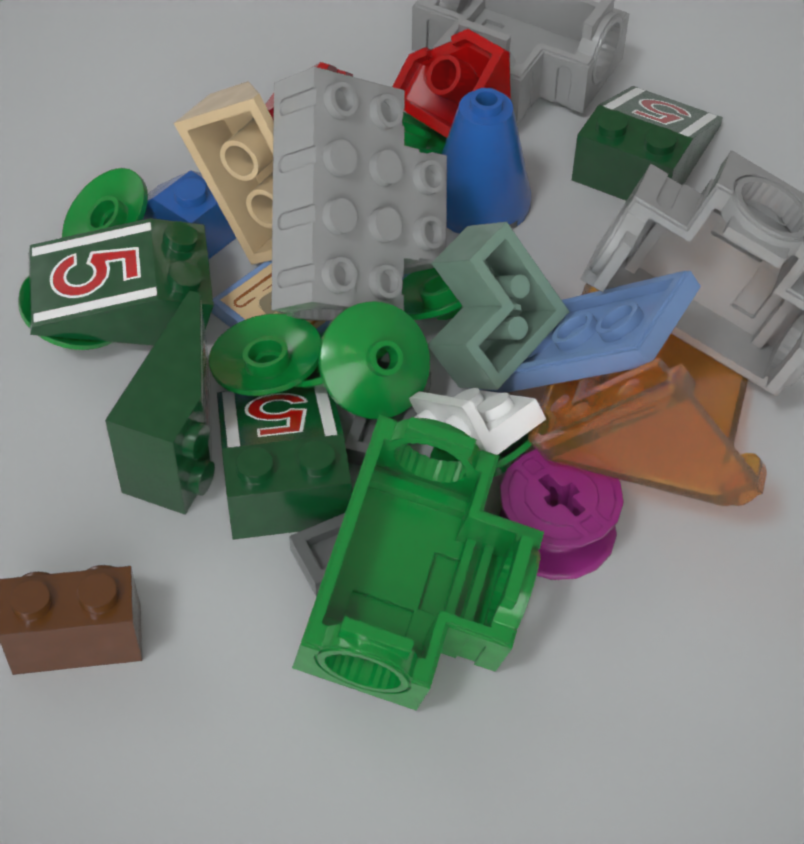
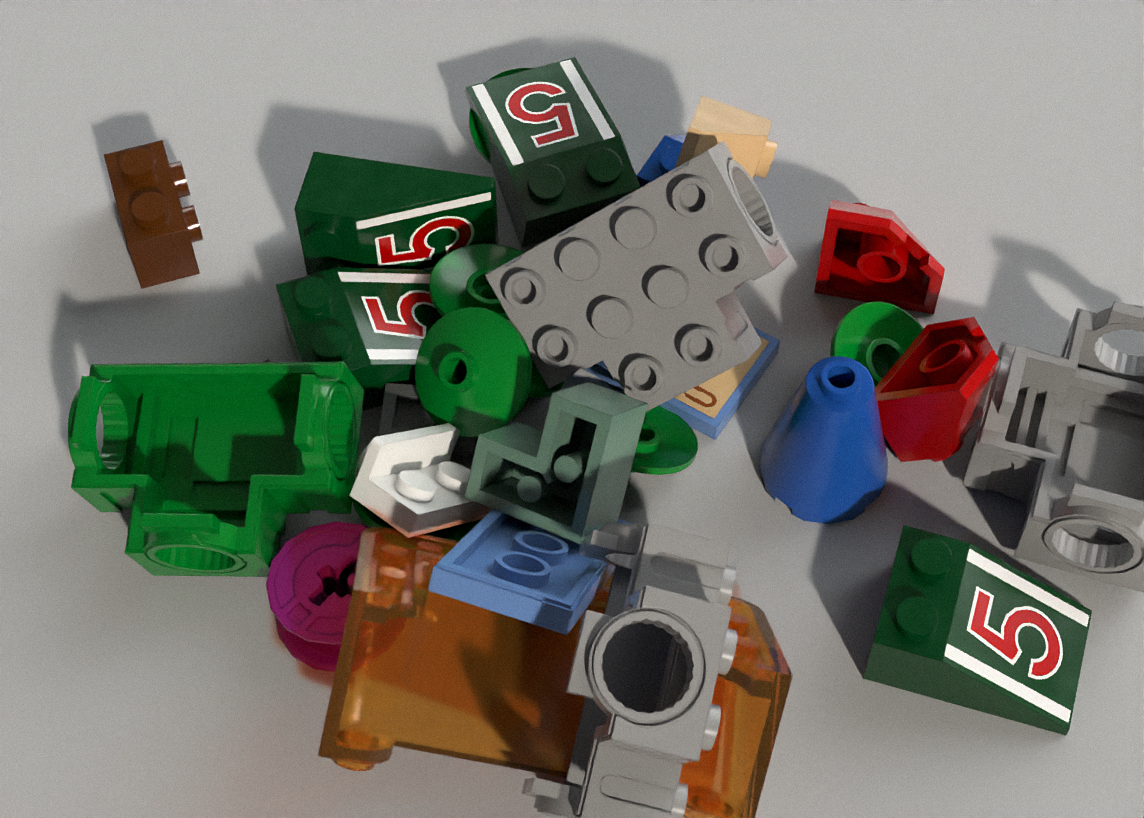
camera: 80 degrees right, 5 degrees up
(107, 201) = (657, 115): green dish -> none

